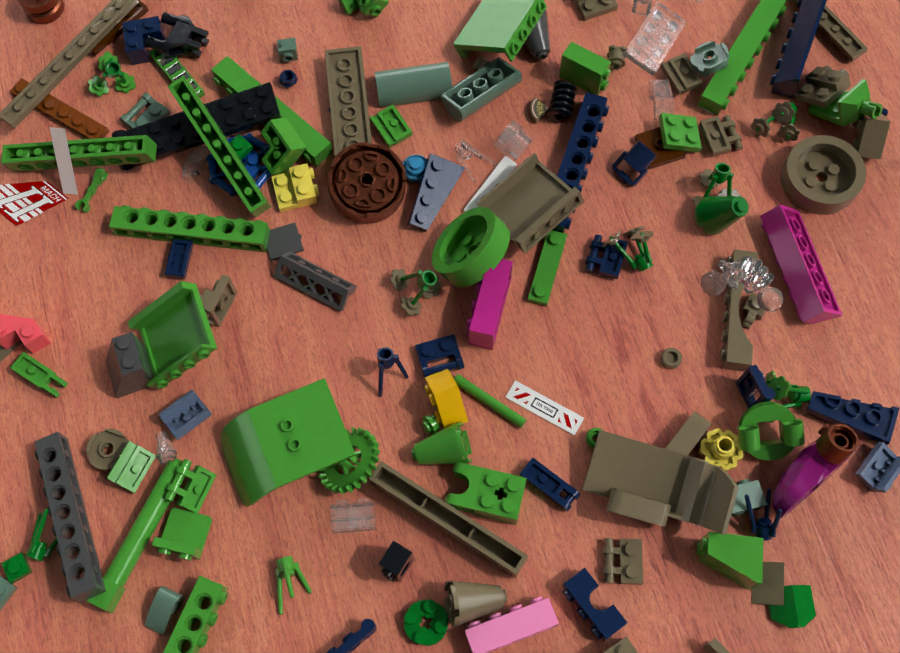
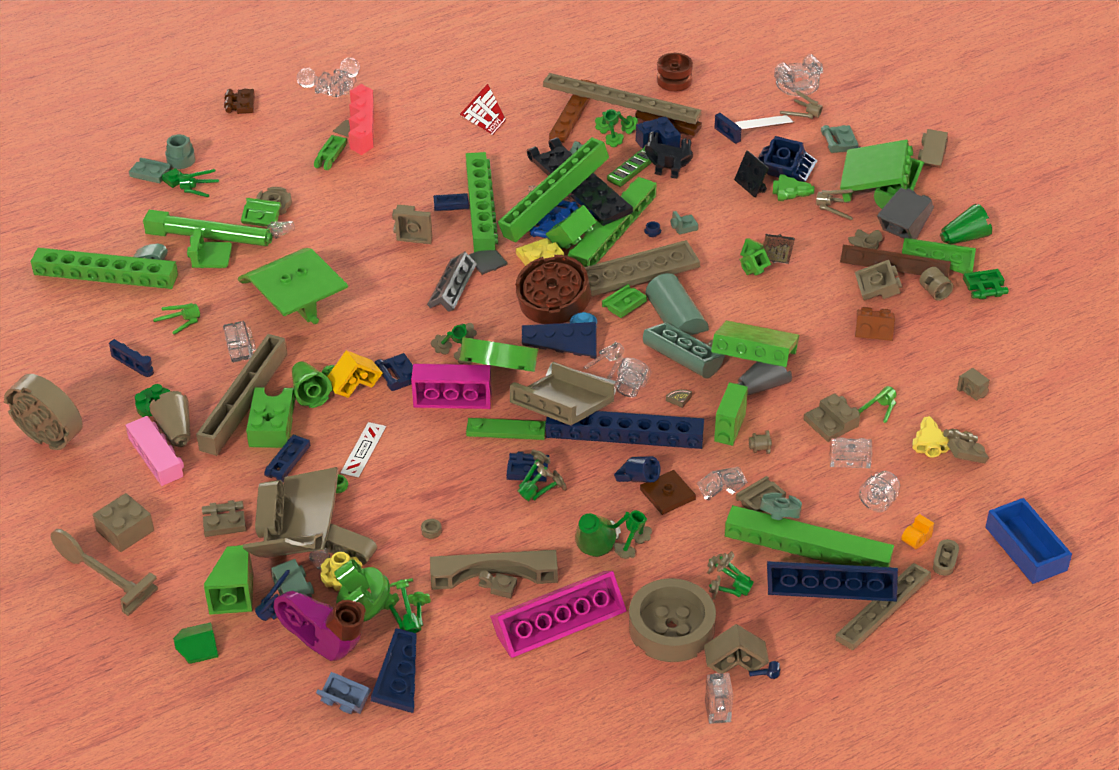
camera: 75 degrees right, 25 degrees down
(63, 160) = (513, 111): white sticker -> none
(82, 153) = (526, 121): bright green brick -> none
(91, 582) = (213, 186): dark grey brick -> none
(99, 177) = (488, 142): bright green piece -> none
(128, 365) = (344, 190): dark grey slope -> none
(174, 333) = (391, 195): bright green panel -> none
(185, 414) = (311, 232): sand blue bracket -> none
(196, 488) = (247, 250): bright green plate -> none
(241, 146) = (564, 209): green plate -> none
(368, 453) = (284, 325): bright green gear -> none
(385, 361) = (377, 325): dark blue plant -> none
(396, 562) = (200, 366): black brick -> none
(490, 401) = (361, 409): bright green piece -> none
(562, 101) = (691, 408): black piece -> none
(603, 622) = (191, 489): dark blue arch -> none
(654, 38) = (794, 465): clear plate -> none
(679, 132) = (685, 500): bright green plate -> none
(715, 135) = (694, 530): dark tan plate -> none
(752, 274) = (517, 548): clear piece -> none
(752, 382) = (407, 570): dark blue plate -> none
(772, 586) = (215, 620): dark tan sticker -> none
(823, 86) = (785, 609): dark tan plate -> none
(849, 106) = (761, 620): bright green plate -> none

